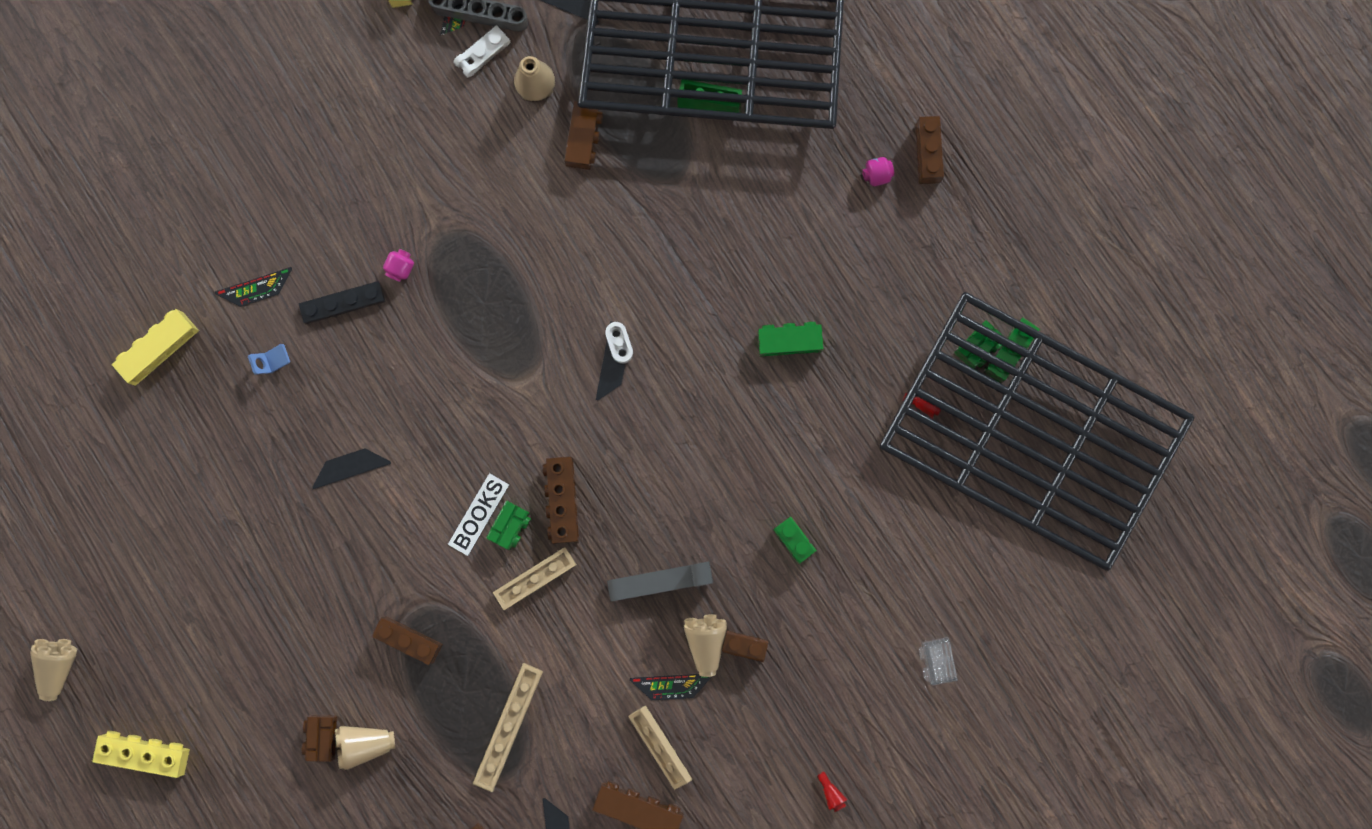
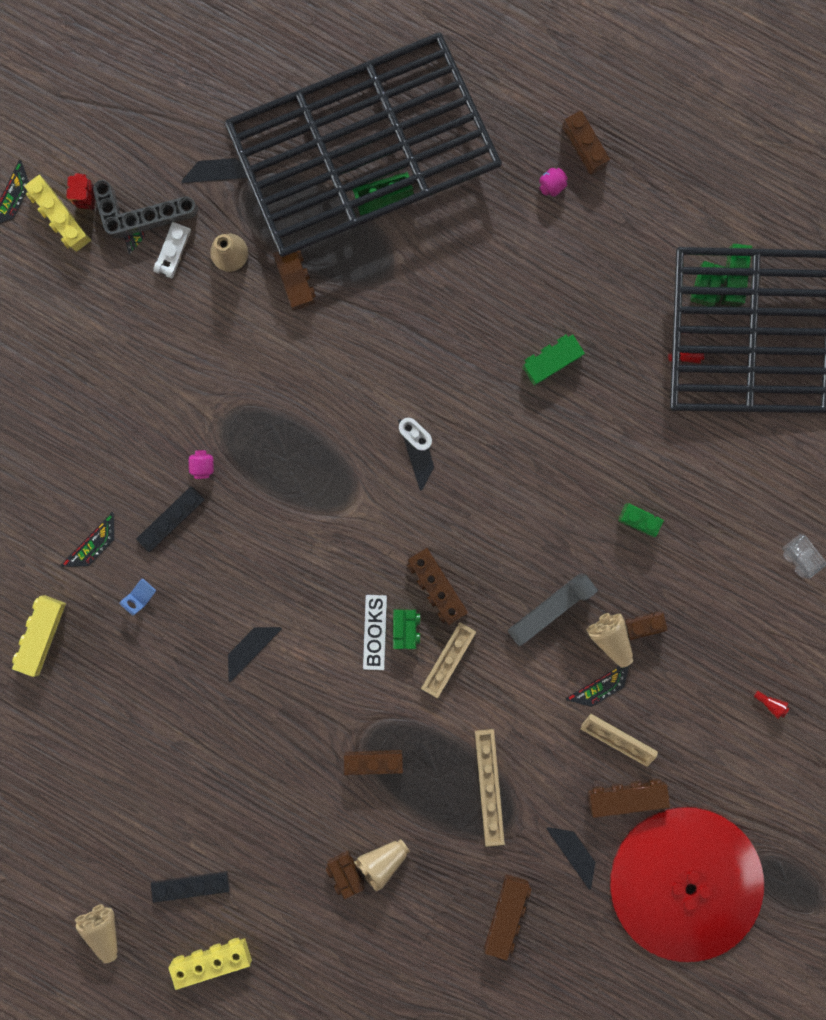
camera: 35 degrees left, 5 degrees up
(164, 668) = (190, 886): none -> black plate

